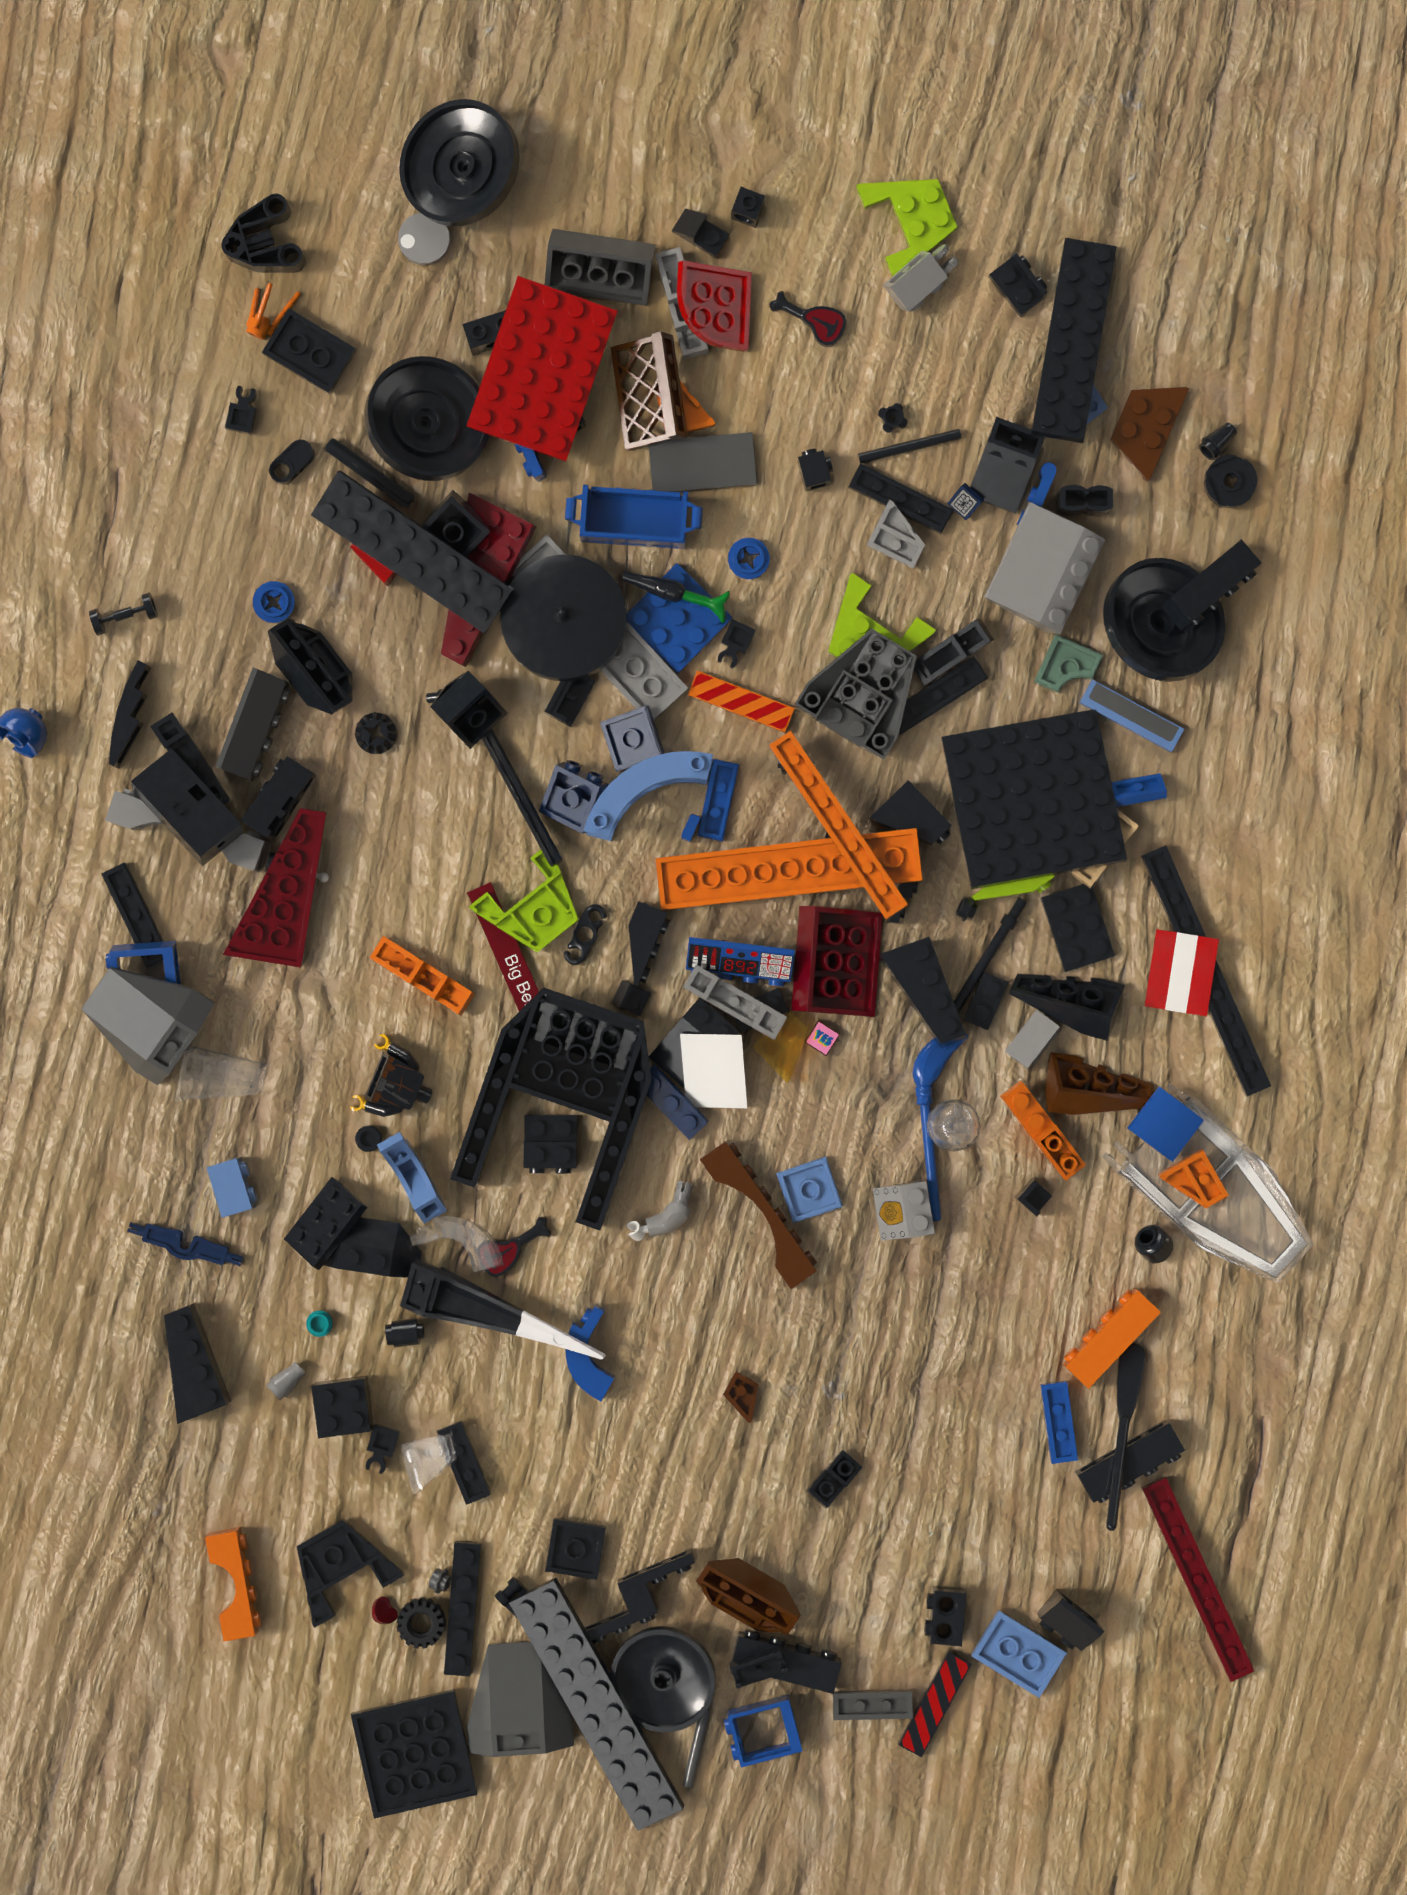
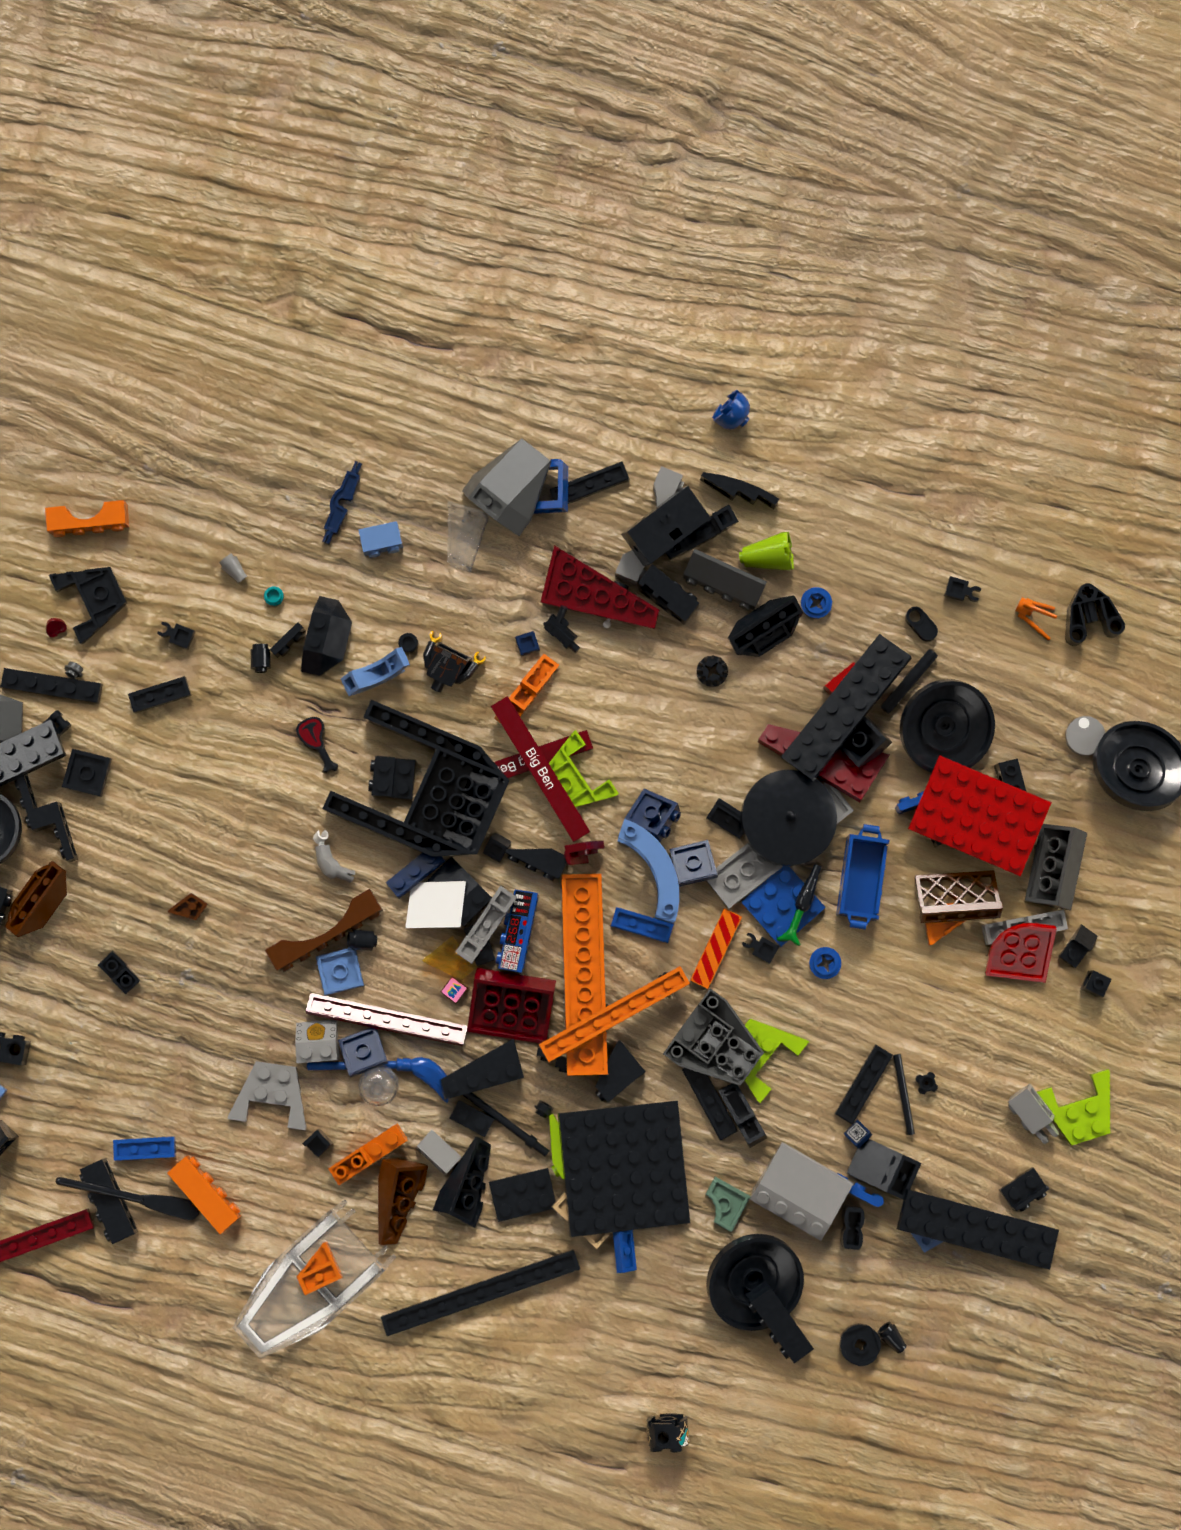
camera: 90 degrees right, 5 degrees down
(98, 622) = (810, 472): black wheel -> none
(194, 1370) = (250, 501): black wedge -> none
(212, 668) = (769, 553): none -> lime cone
(309, 351) = (1004, 643): black plate -> none
(325, 1223) = (347, 605): black plate -> none
(333, 941) = (558, 628): none -> black piece
(342, 1406) = (209, 608): black brick -> none
(357, 980) = (527, 643): none -> dark blue tile
(387, 1305) = (282, 647): none -> black plate
(427, 1459) = (164, 667): clear wing -> none
(437, 1623) = (52, 662): black tyre -> none
(449, 1297) = (282, 695): black plate -> none
(467, 708) = (725, 739): black piece -> none
(477, 1241) = (325, 715): clear arch -> none
(522, 799) = (655, 775): black axle -> none
(524, 948) = (540, 769): none -> dark red tile
(583, 1369) = (223, 787): blue arch -> none
(585, 947) = (538, 815): black piece -> none
(632, 890) = (578, 853): none -> dark red bracket
(690, 827) = (626, 904): blue tile -> none
(703, 463) = (900, 934): dark grey tile -> none
(767, 1164) = (361, 940): none -> black brick
(814, 469) = (890, 1019): black brick -> none
(825, 322) = (1003, 1036): black piece -> none
(868, 1122) = (386, 1019): none -> tile
(896, 537) = (833, 1078): light grey wing -> none
(911, 1149) = (362, 1051): none -> dark blue plate
(964, 1263) = (271, 1085): none -> light grey wing
(1131, 716) = (682, 1251): tile -> none
(1147, 425) = (908, 1281): reddish brown wing -> none
(1153, 1244) = (273, 1233): black head -> none
(1165, 1124) = (364, 1250): blue slope -> none
(1181, 972) = (480, 1273): red sticker -> none
(1361, 717) = (668, 1432): none -> black brick

